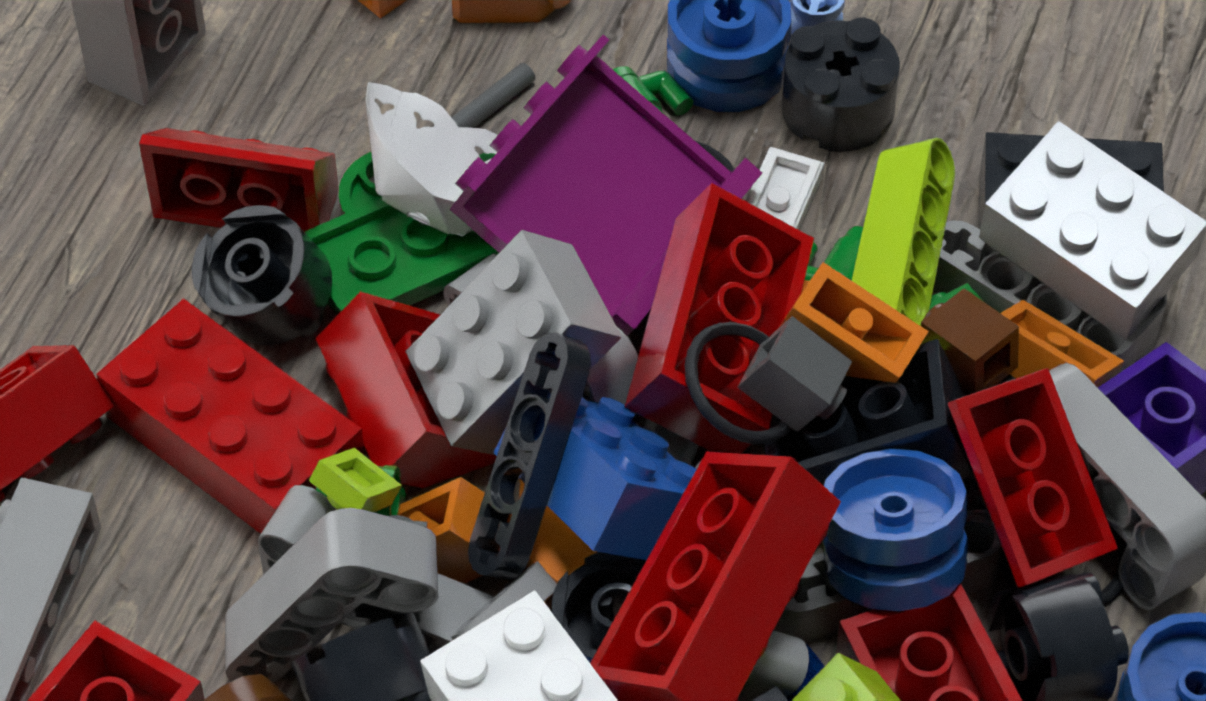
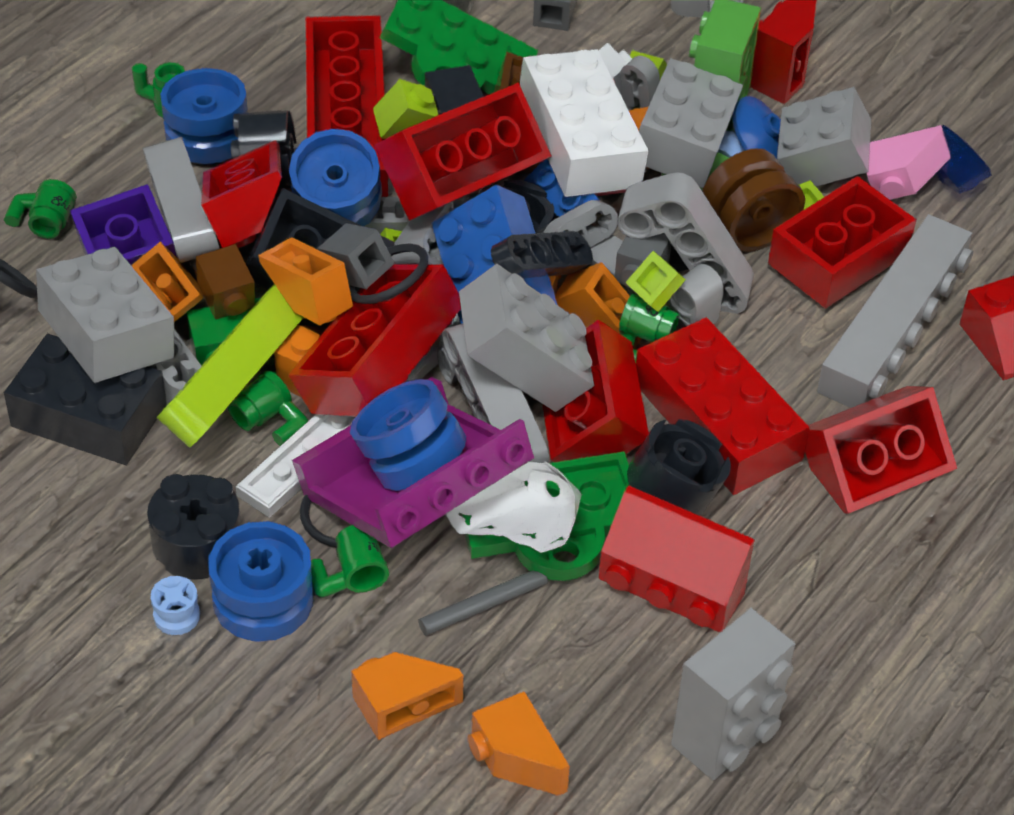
camera: 165 degrees left, 5 degrees down
(617, 179) = (407, 433): none -> blue wheel

